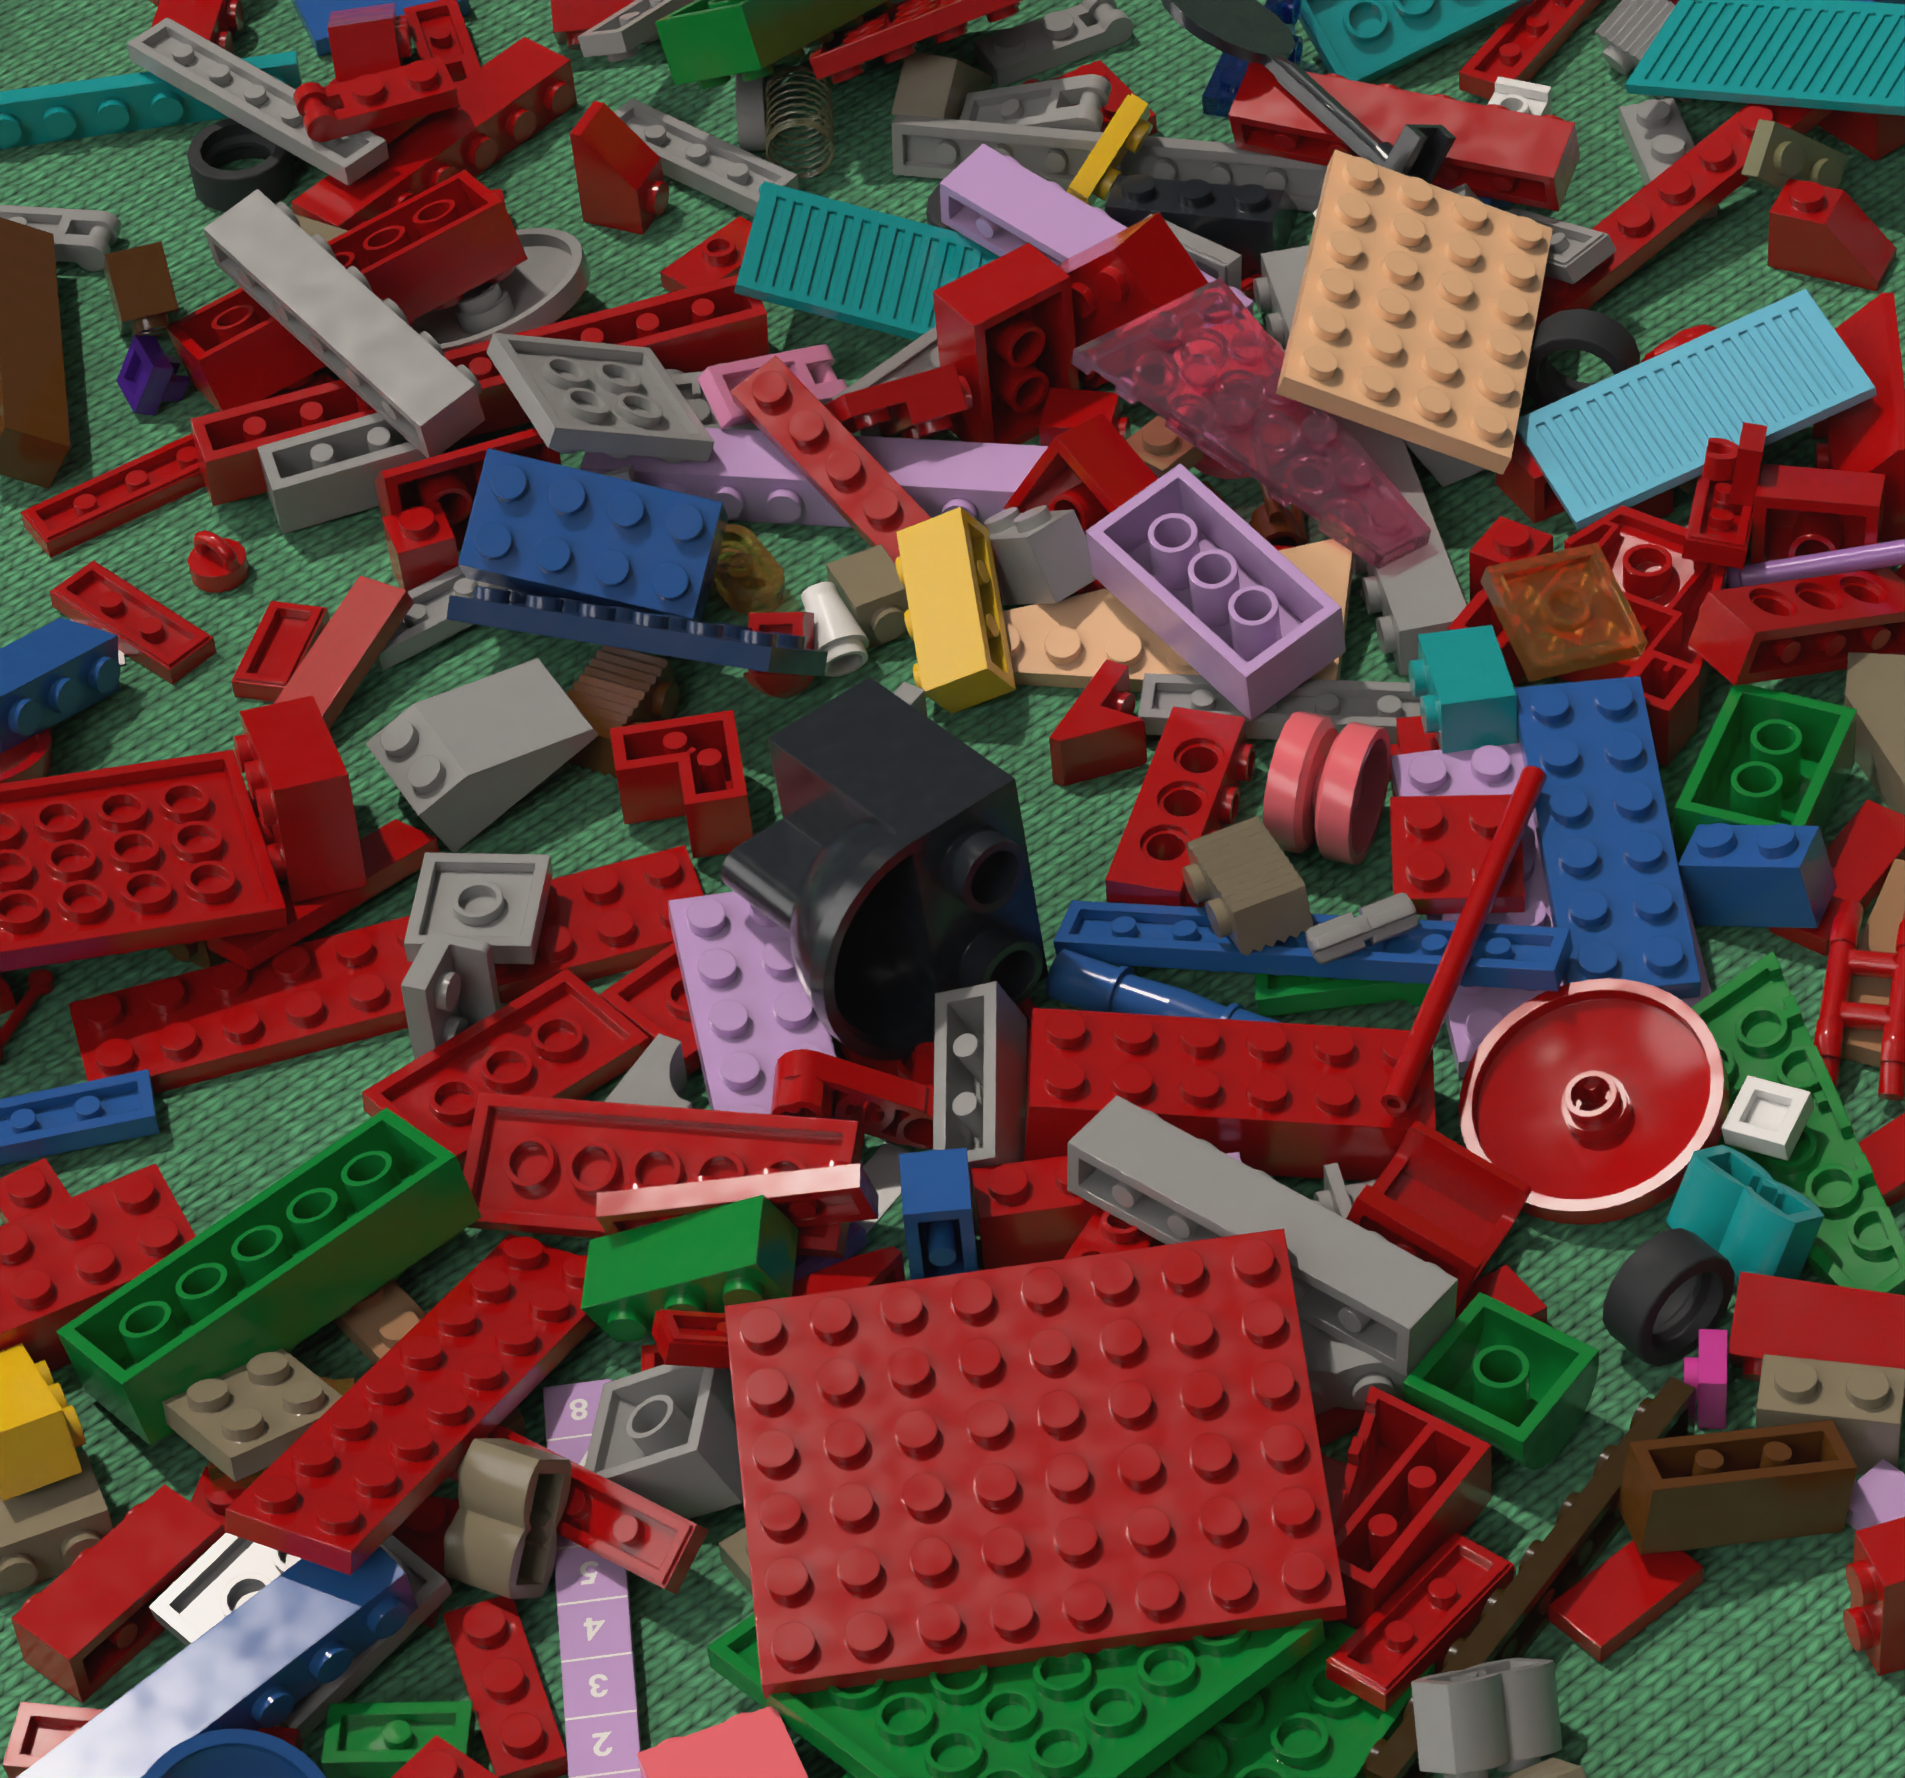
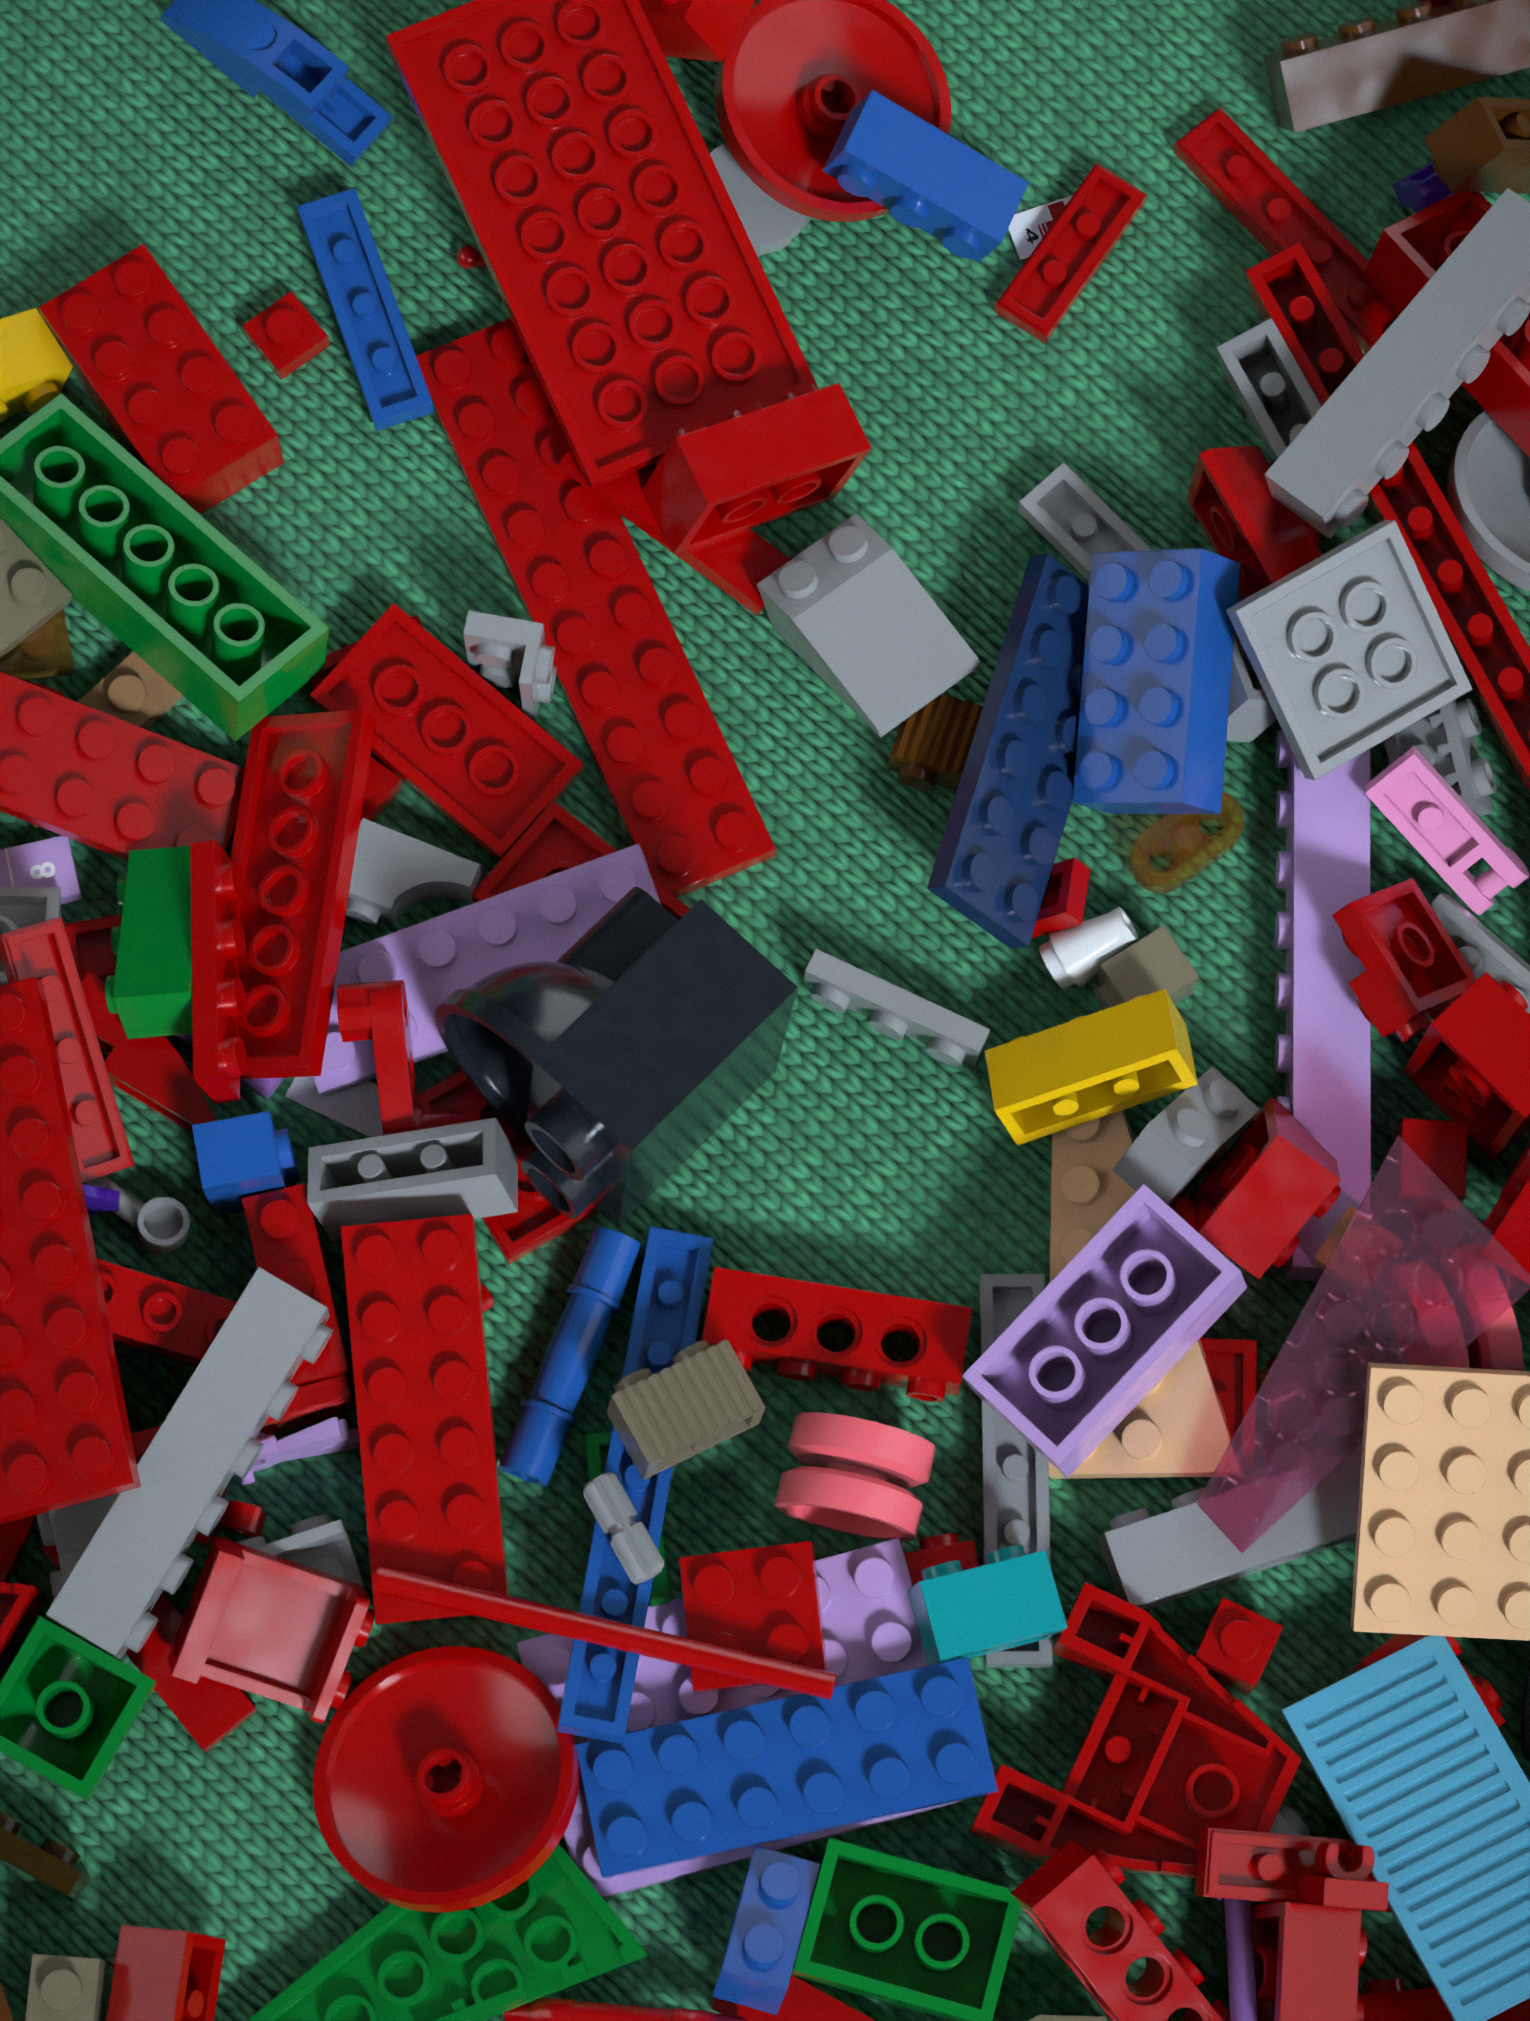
camera: 75 degrees right, 30 degrees up
(217, 563) = (1162, 317): red tile -> none
(278, 649) = (1040, 406): red tile -> none
(348, 646) = (1004, 465): red tile -> none
(420, 544) = (1173, 512): red brick -> none
(482, 898) = (638, 665): light grey plate -> none
(687, 770) = (856, 847): red brick -> none
(828, 455) = (1293, 926): red plate -> none
(1099, 730) = (951, 1225): red slope -> none
(1563, 611) = (1103, 1703): clear orange plate -> none
(1667, 1295) = (187, 1864): black tyre -> none
(1709, 1378) = (110, 1908): dark pink plate -> none
(1745, 1214) = (306, 1924): teal brick -> none
(1767, 1117) = (412, 1952): white plate -> none

